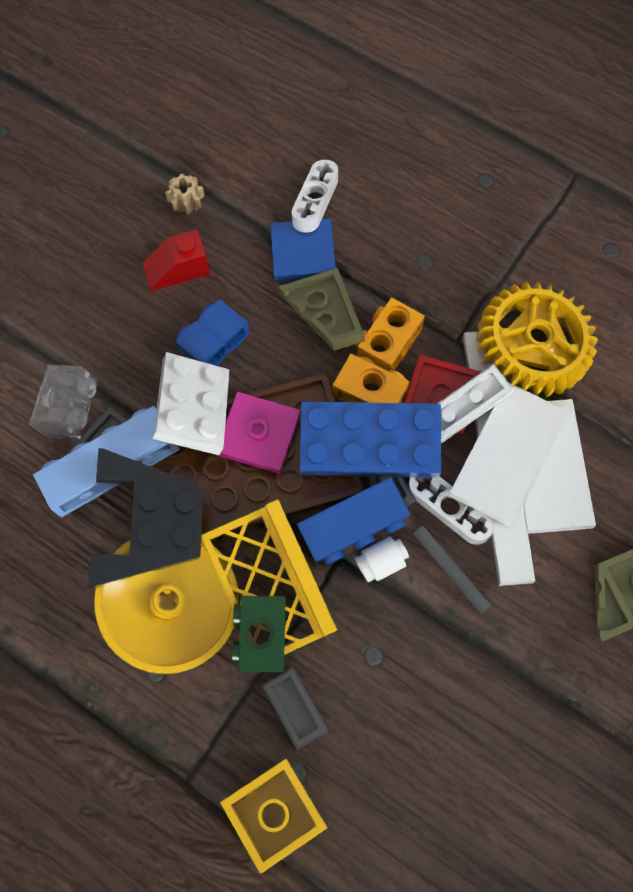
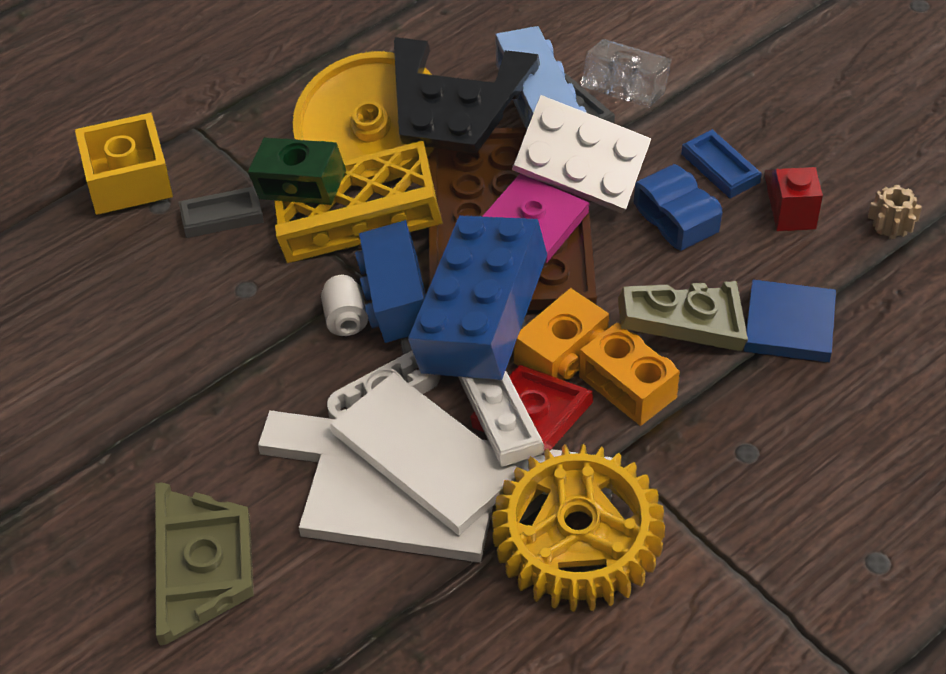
camera: 105 degrees right, 20 degrees down
(148, 320) = (721, 163): none -> blue tile
(316, 206) = (890, 365): white beam -> none
(452, 570) = (307, 374): dark grey bar -> none

